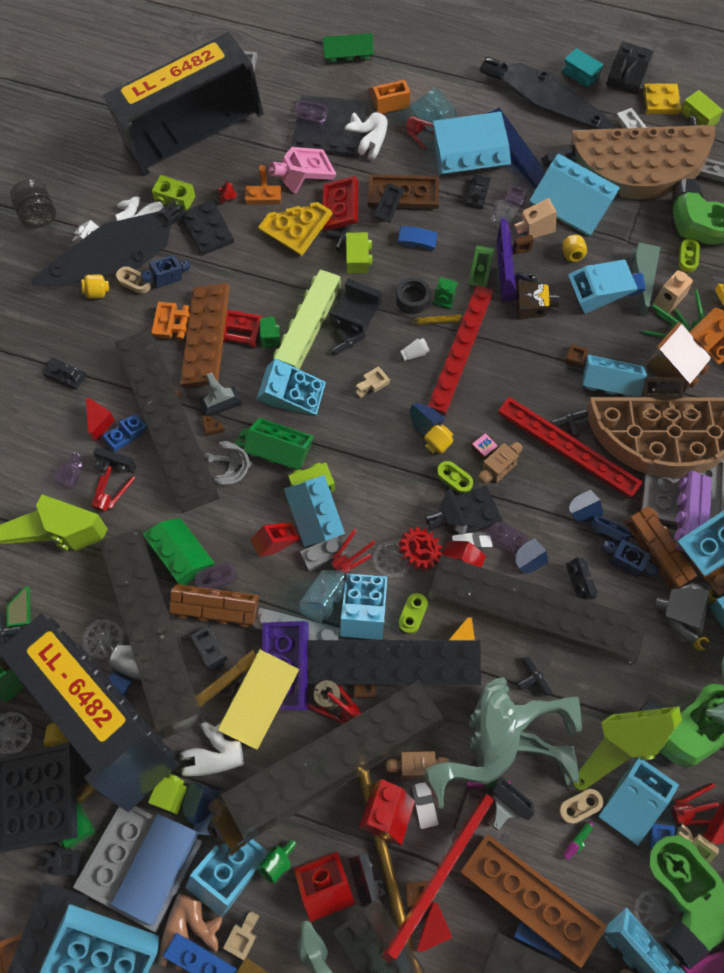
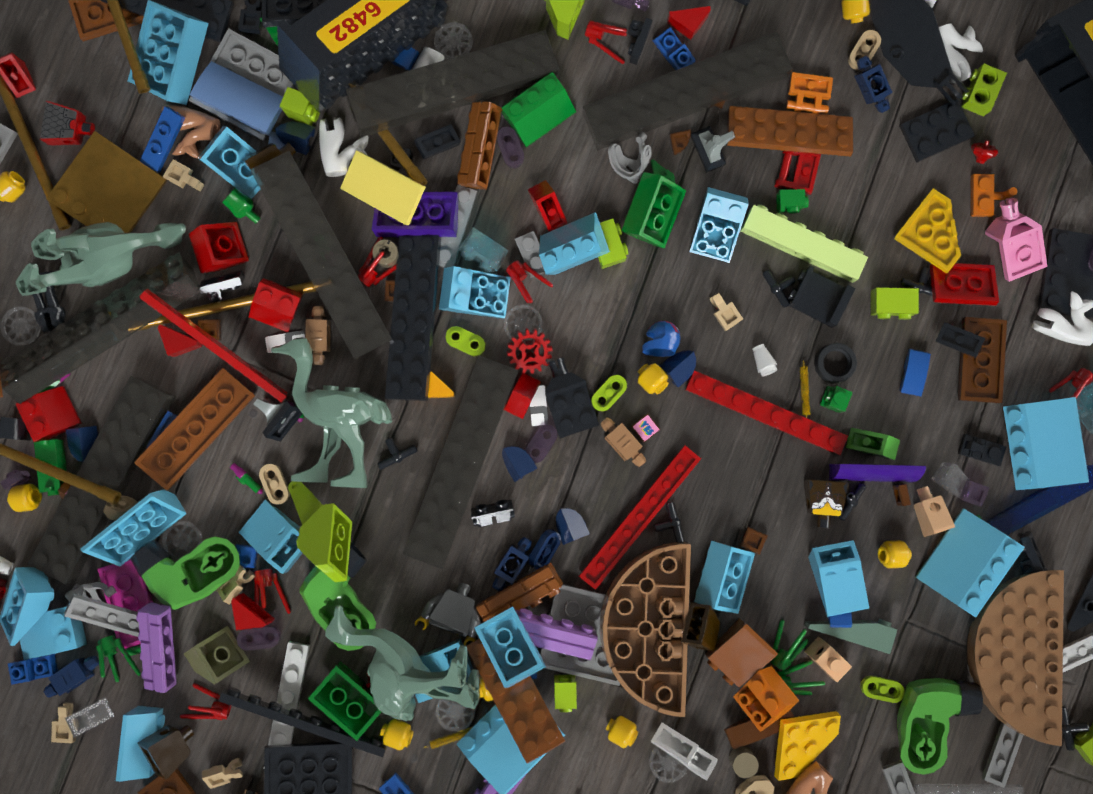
camera: 90 degrees right, 20 degrees up
(399, 428) = (665, 339): none -> blue helmet

